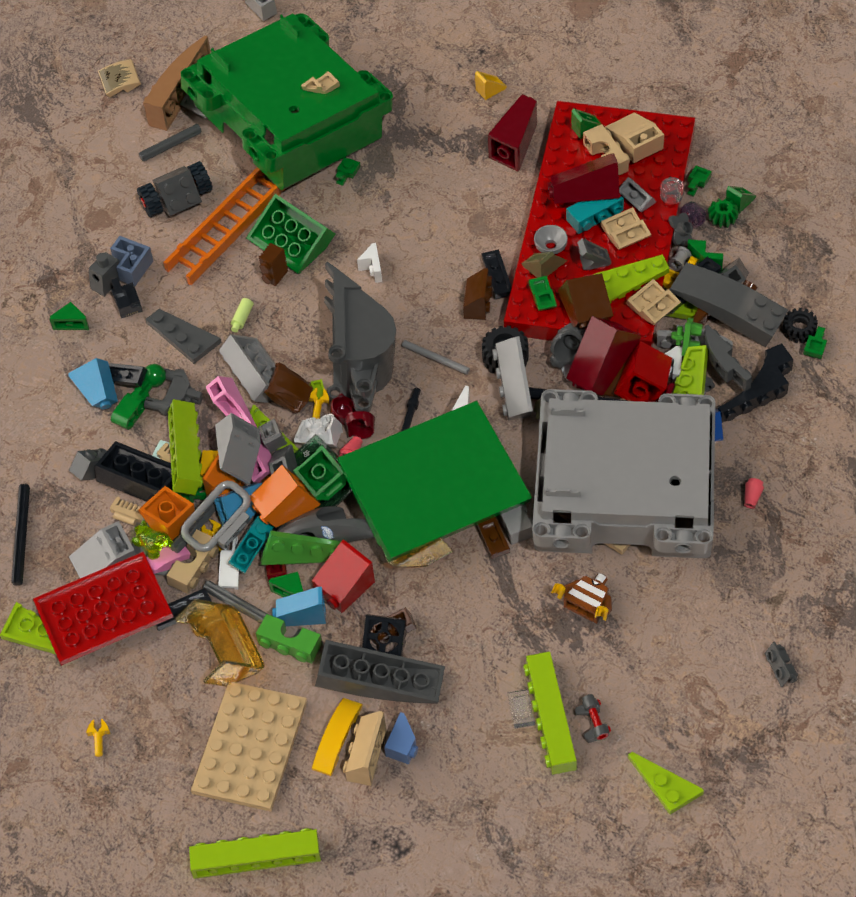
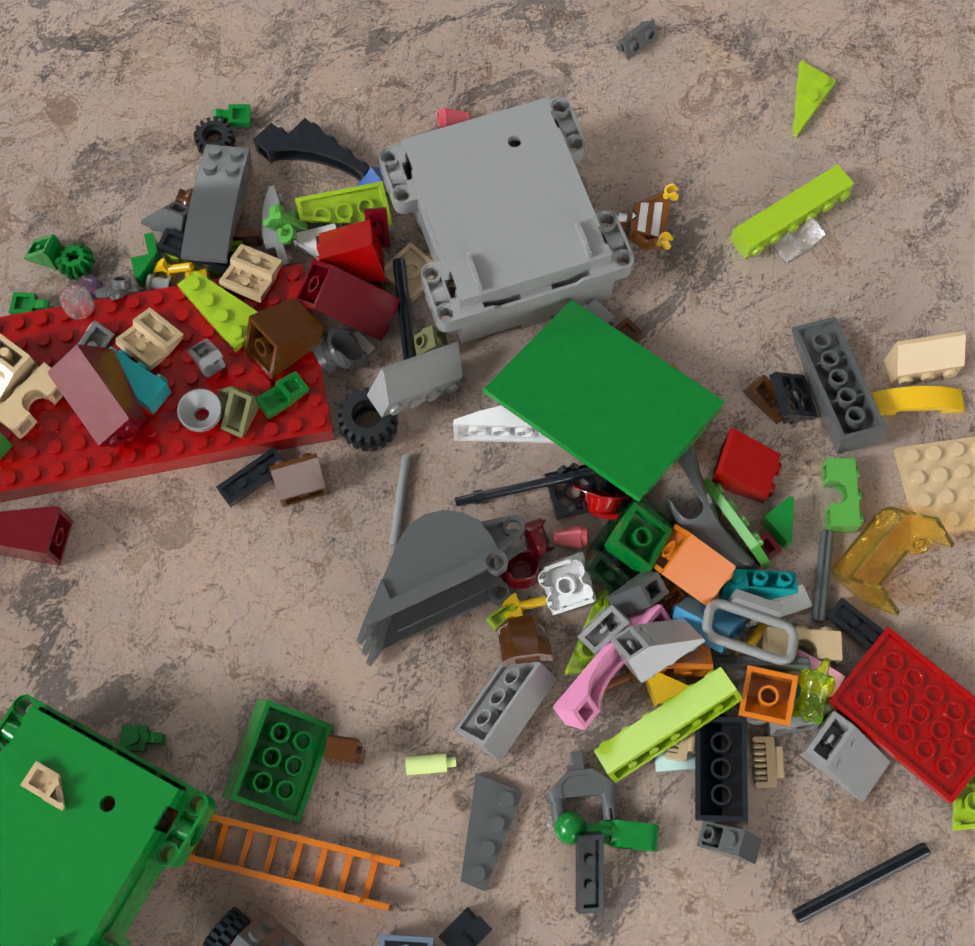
camera: 120 degrees left, 15 degrees up
(95, 383) = (618, 899): dark azure slope -> none
(302, 608) = (809, 502): dark azure slope -> none
(370, 261) = (281, 634): white slope -> none
(401, 742) = (896, 328): medium blue slope -> none
(591, 708) = (765, 180): dark grey piece -> none
(721, 358) = (305, 181): dark grey slope -> none

